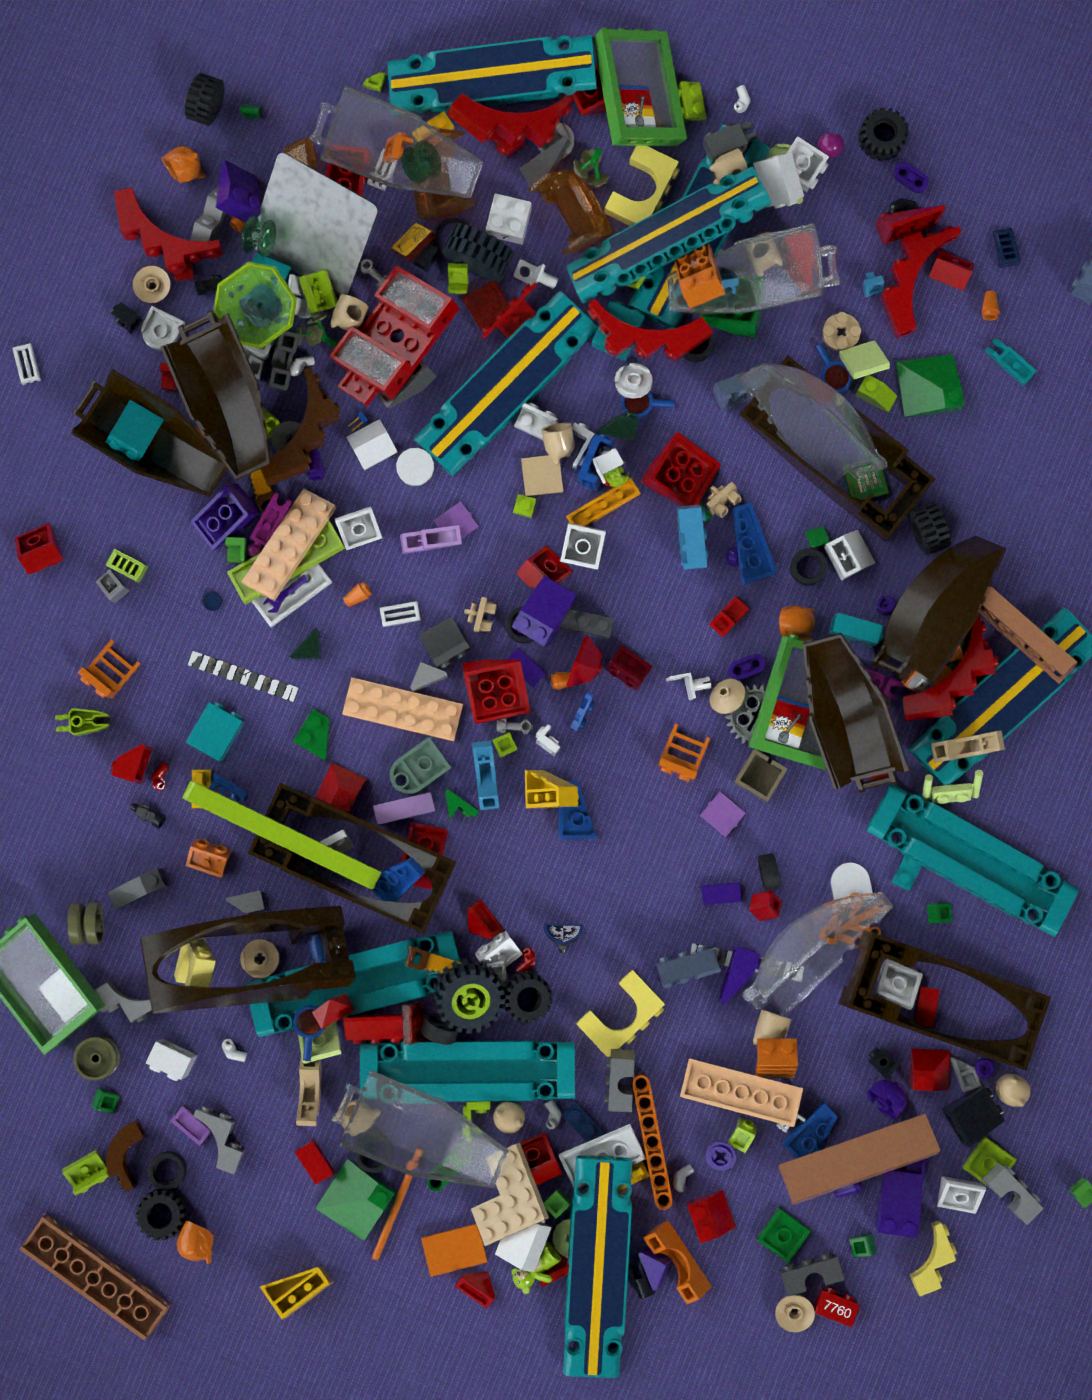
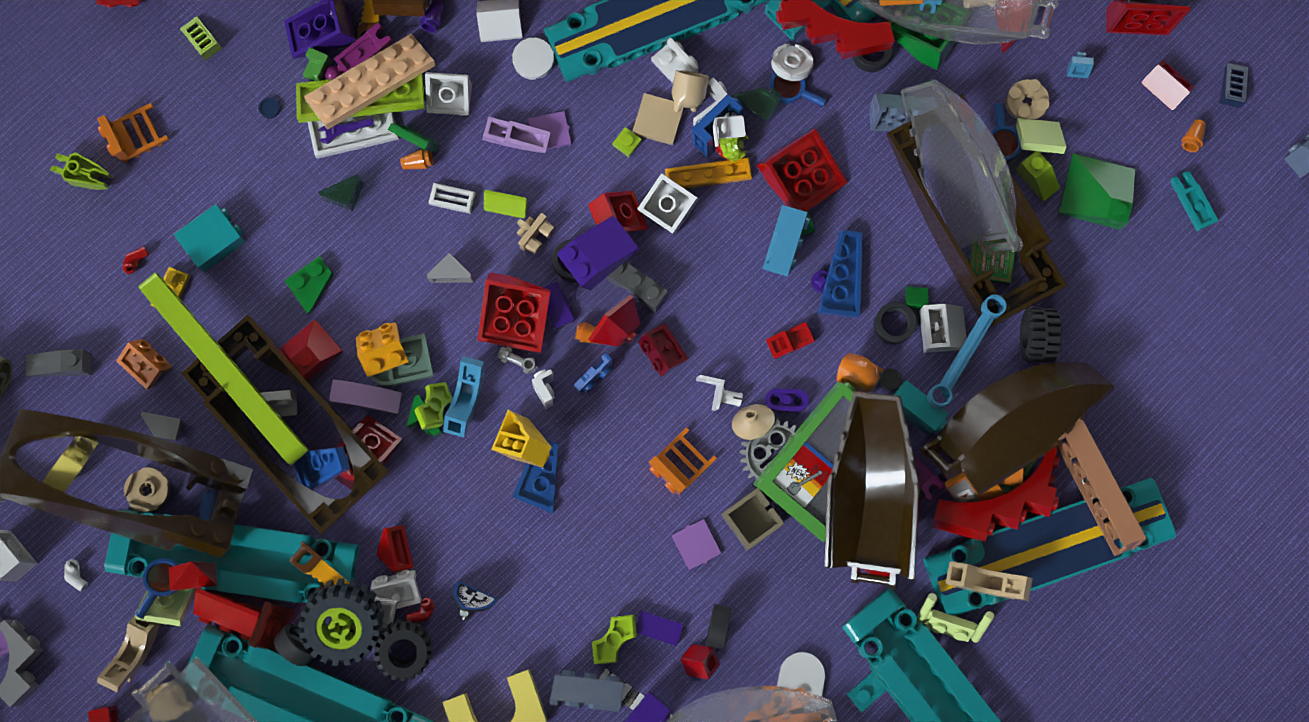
camera: 20 degrees right, 5 degrees down
(112, 586) = (176, 53): light grey slope -> none
(132, 764) = (109, 233): red slope -> none
(144, 813) = (101, 289): black piece -> none
(235, 792) = (193, 296): blue plate -> none
(243, 676) = (265, 195): sticker -> none
(348, 577) = (414, 137): none -> green tile
(399, 764) = (380, 349): none -> light orange bracket
(402, 709) = (411, 295): light nougat plate -> none
(445, 643) = (483, 246): dark grey bracket -> none
(447, 601) = (505, 204): none -> lime slope
(464, 799) = (431, 412): none -> lime tile
(504, 744) = (499, 375): lime plate -> none
(691, 909) = (607, 648): none -> lime tile
(721, 497) = (834, 215): tan hips -> none
(823, 613) = (890, 379): none -> pearl dark grey piece
(876, 568) = (967, 351): none -> dark azure piece
(886, 605) = (960, 396): dark purple tile -> none
(898, 299) = (1140, 50): red arch -> none

